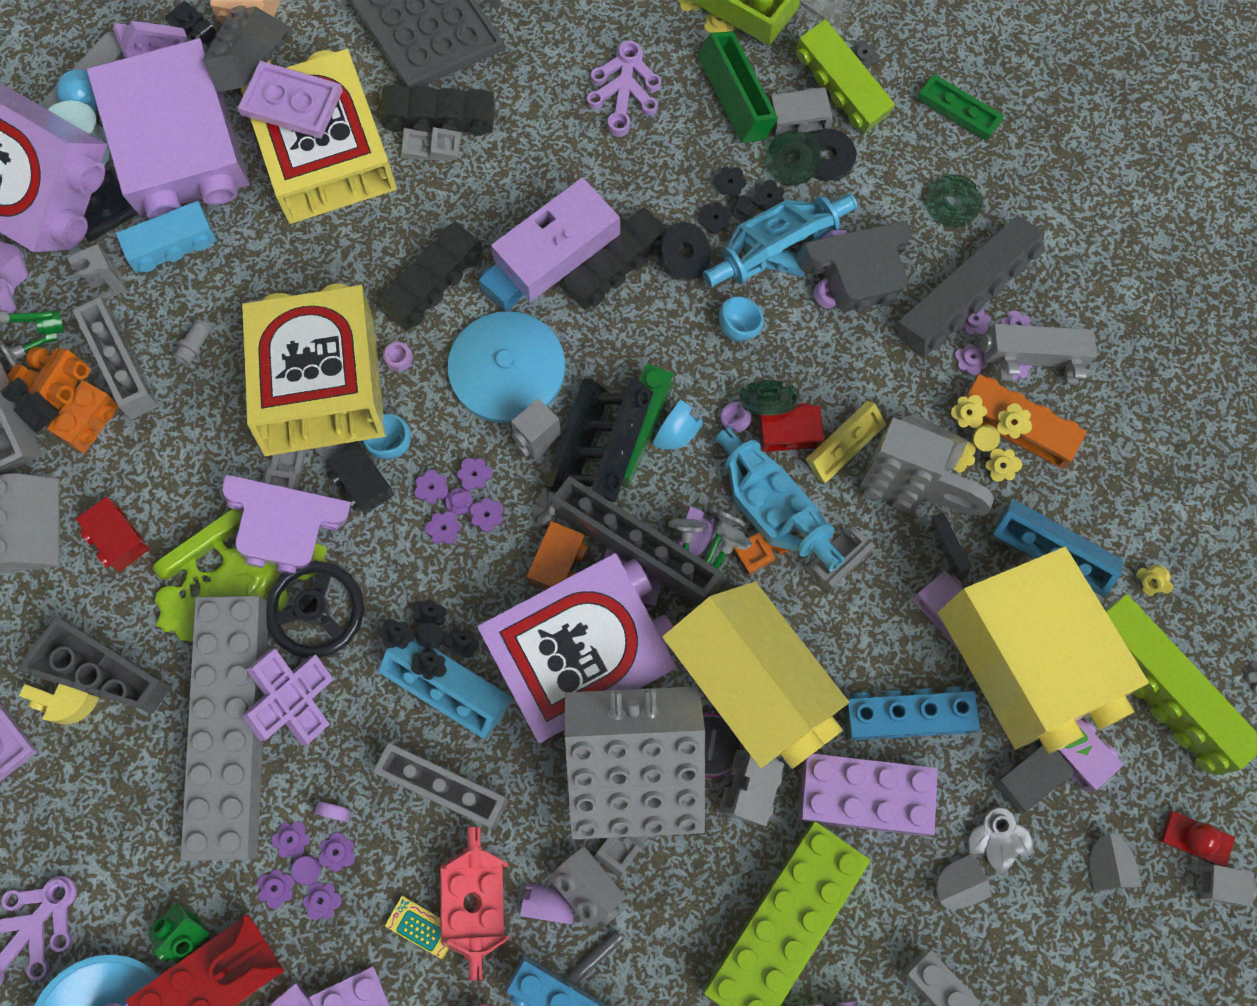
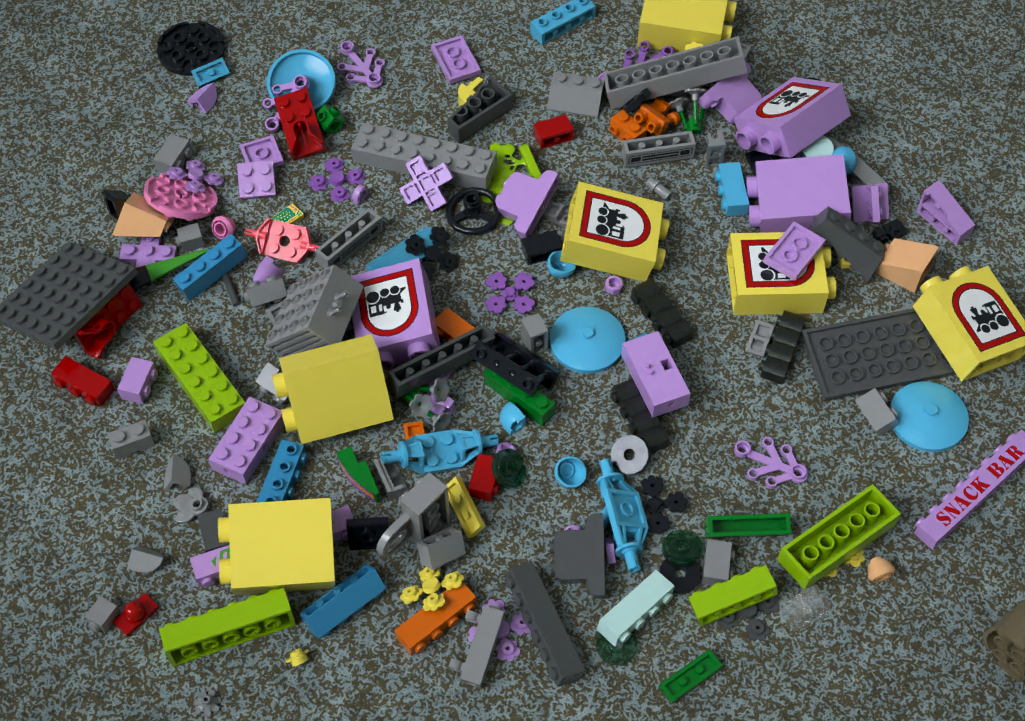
camera: 110 degrees right, 15 degrees down
(854, 606) = (358, 474): none -> green slope
(905, 183) = (635, 608): none -> light aqua brick

